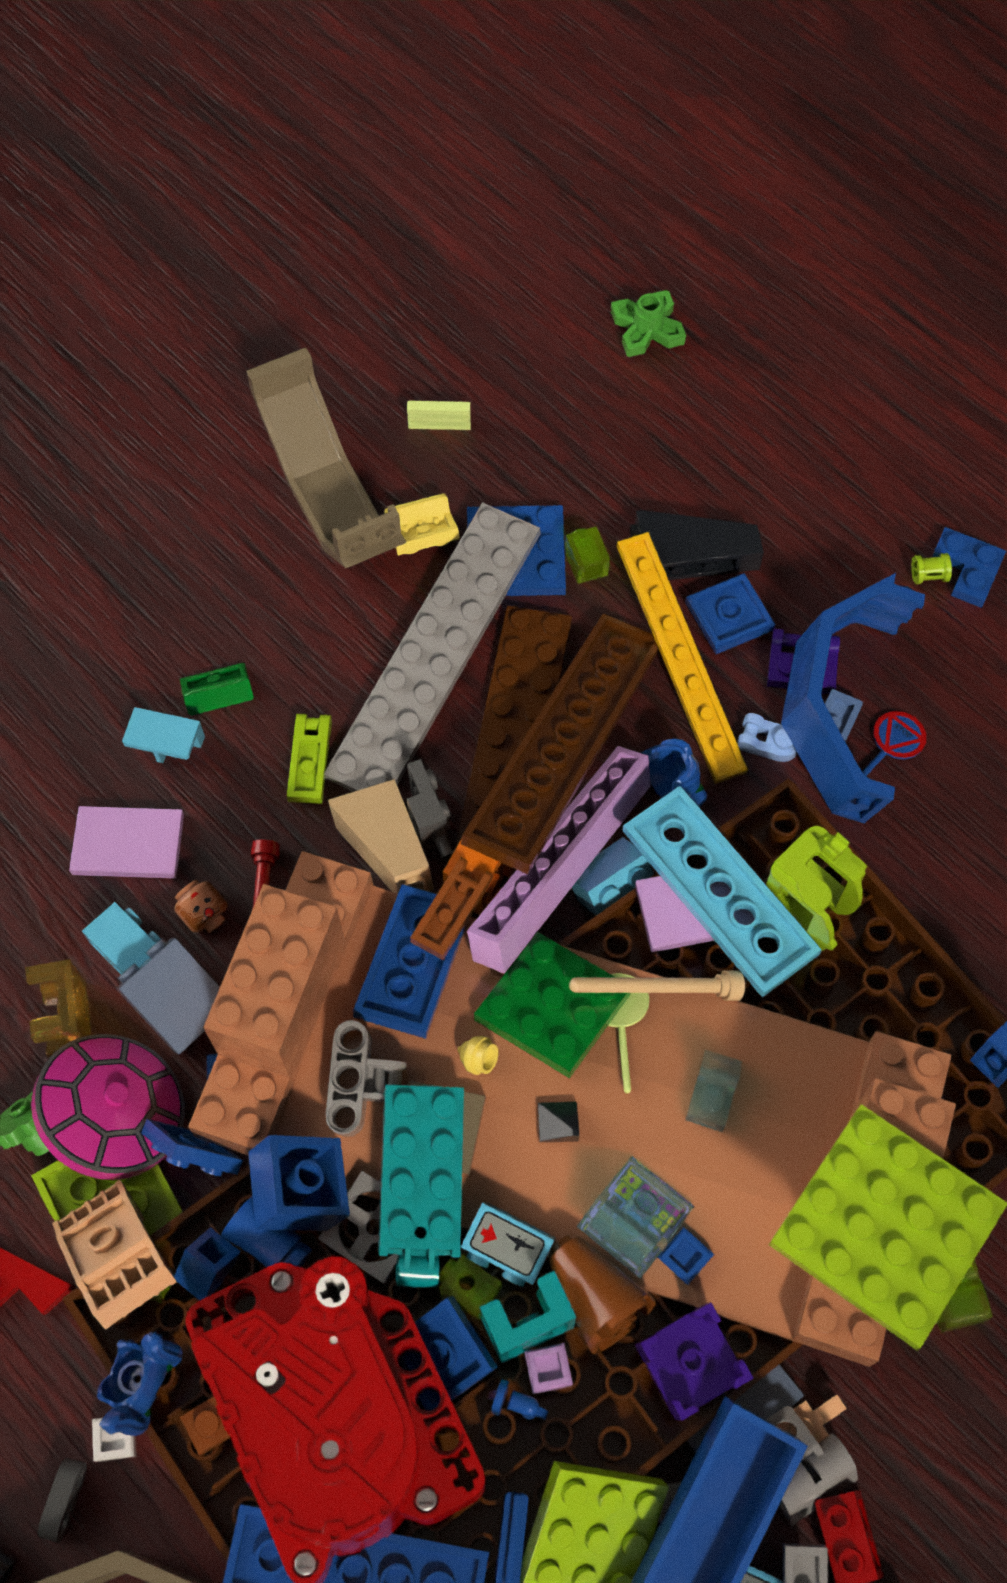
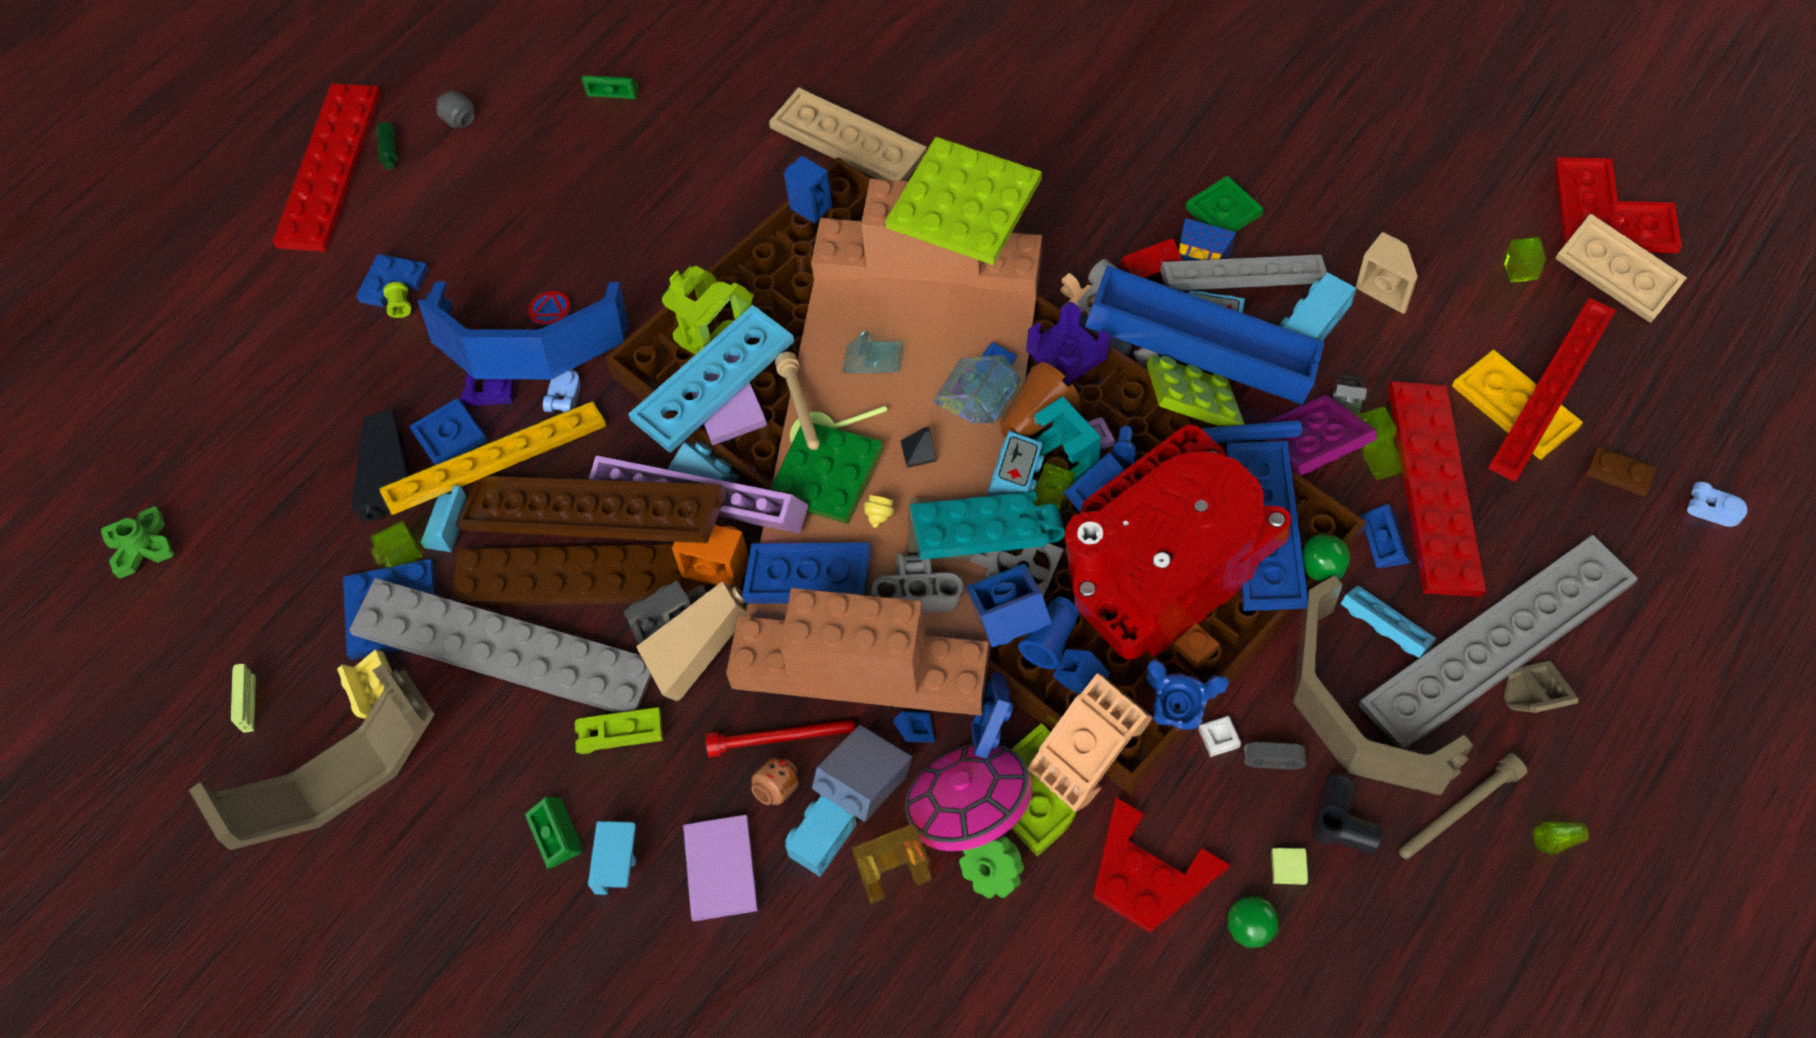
camera: 95 degrees left, 5 degrees down
(450, 911) = (764, 546): dark orange hinge -> none
(602, 599) = (441, 528): none -> medium azure panel
(675, 766) = (607, 440): blue hair -> none

